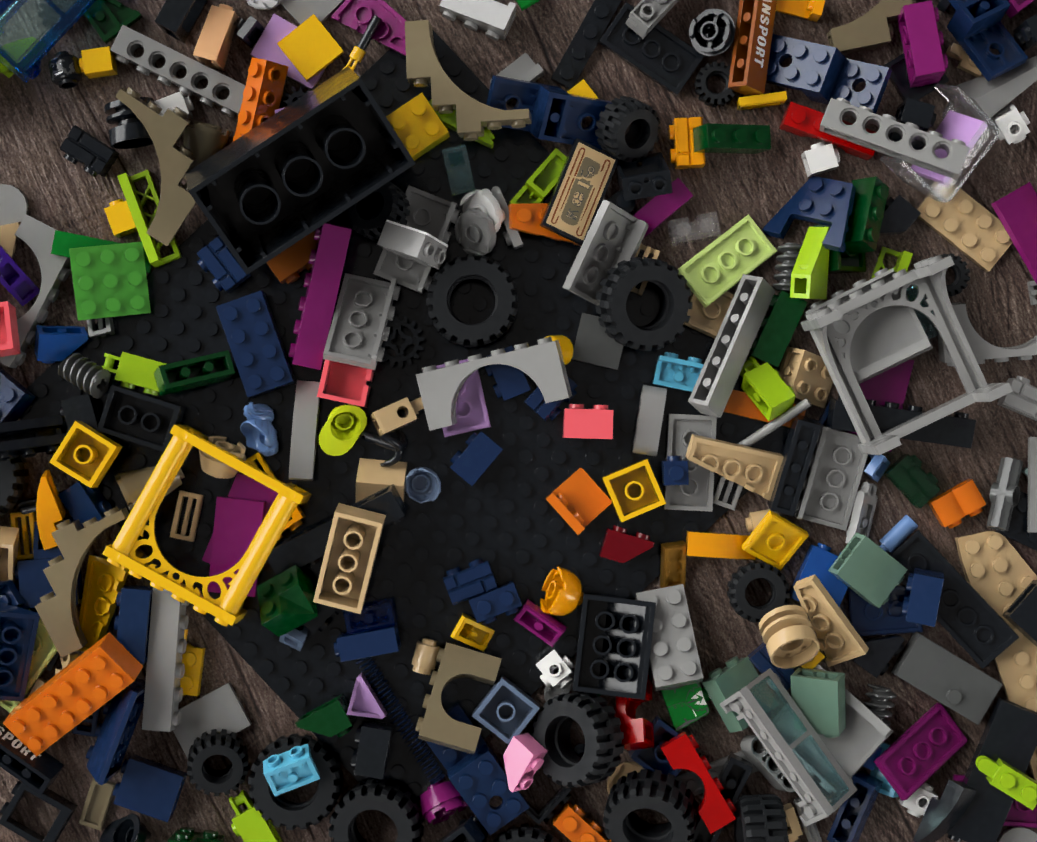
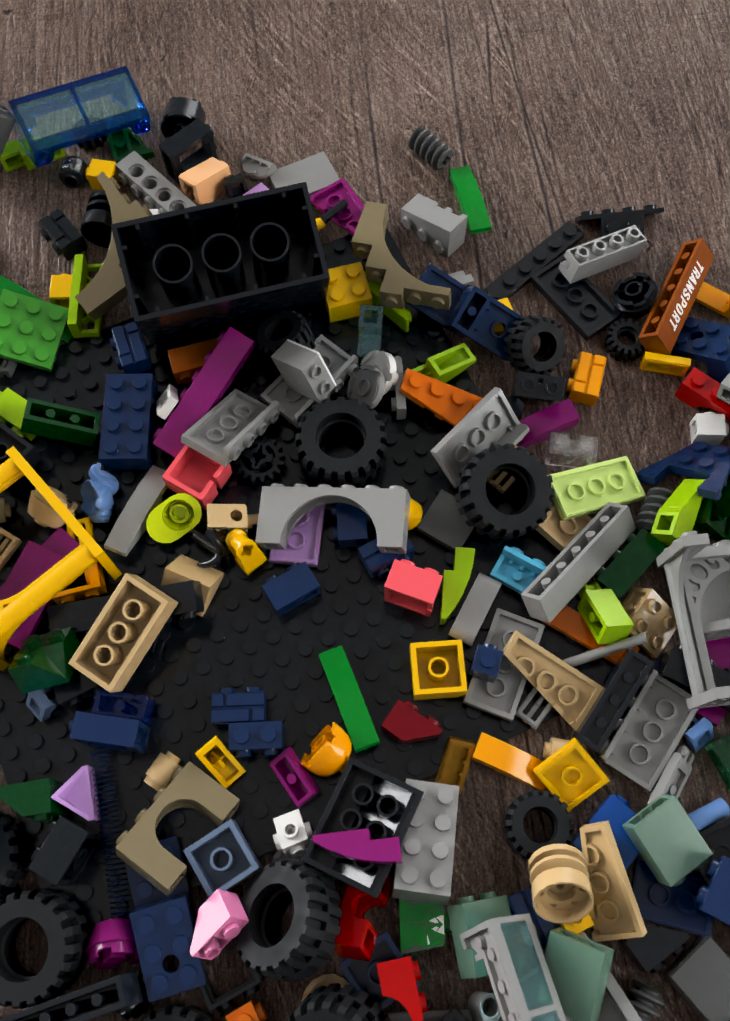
camera: 25 degrees right, 20 degrees down
(287, 314) = (167, 401): none -> white tile
(421, 438) = (245, 551): none -> yellow piece
(422, 485) = (229, 595): sand blue hair -> none
(562, 540) = (349, 699): none -> green slope
(579, 191) = (472, 379): tile -> none
(579, 500) = (378, 664): orange bracket -> none
(618, 666) = (360, 847): none -> magenta slope
(624, 403) = (455, 582): none -> lime slope
(731, 138) = (630, 381): dark green brick -> none

